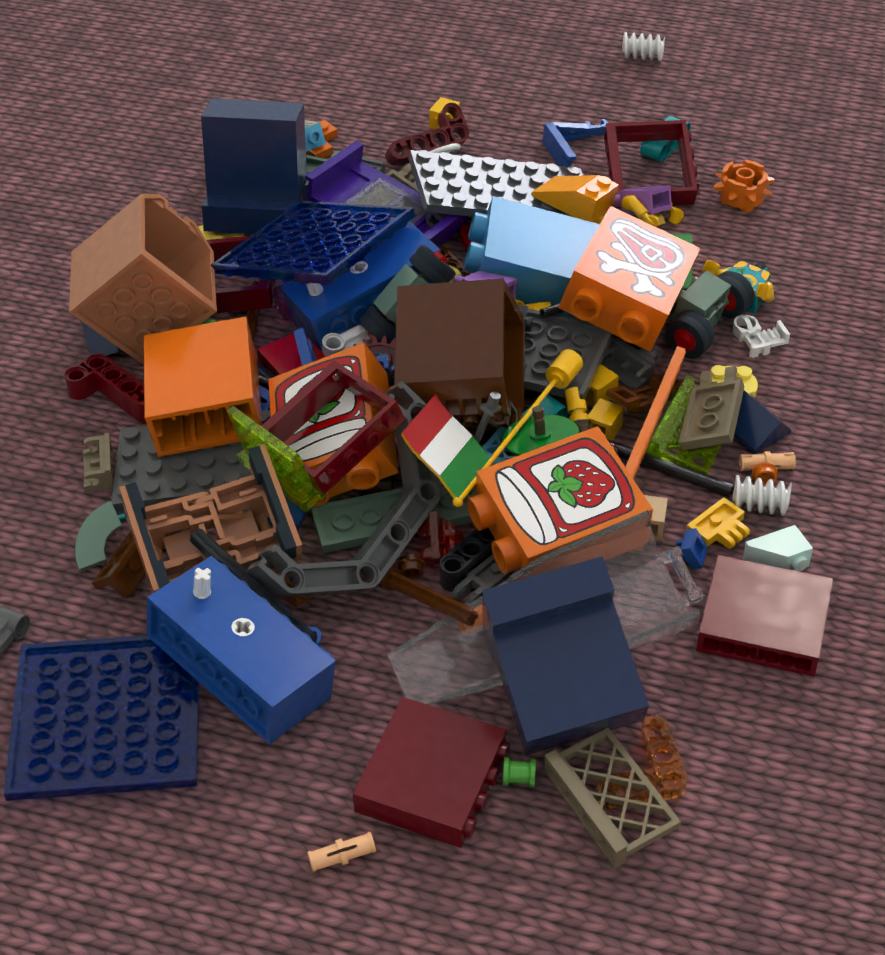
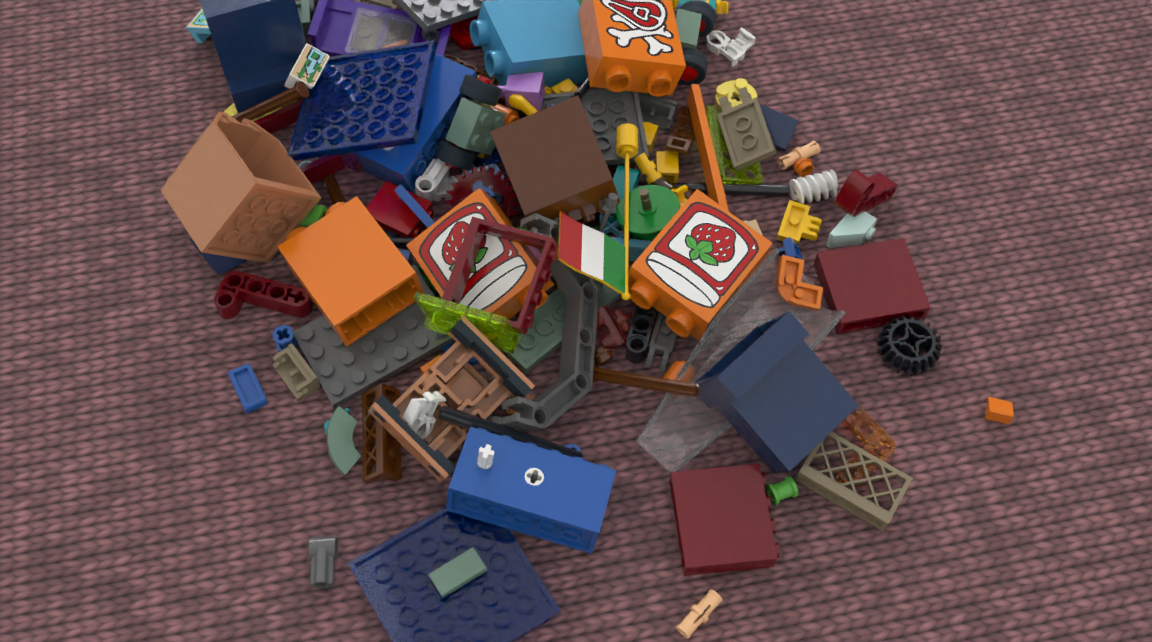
camera: 30 degrees left, 15 degrees up
(46, 461) = (248, 388): none -> blue tile
(108, 424) = (283, 337): none -> blue bush
(117, 696) = (457, 572): none -> sand green tile
(172, 518) = (420, 413): none -> white piece
(261, 217) = (275, 102): none -> reddish brown axle
(283, 201) = (307, 67): none -> panel
(660, 574) = (792, 289): none -> orange plate
(790, 695) = (913, 339): none -> black gear
(798, 513) = (864, 193): none -> dark red beam
(843, 803) = (999, 410): none -> orange slope

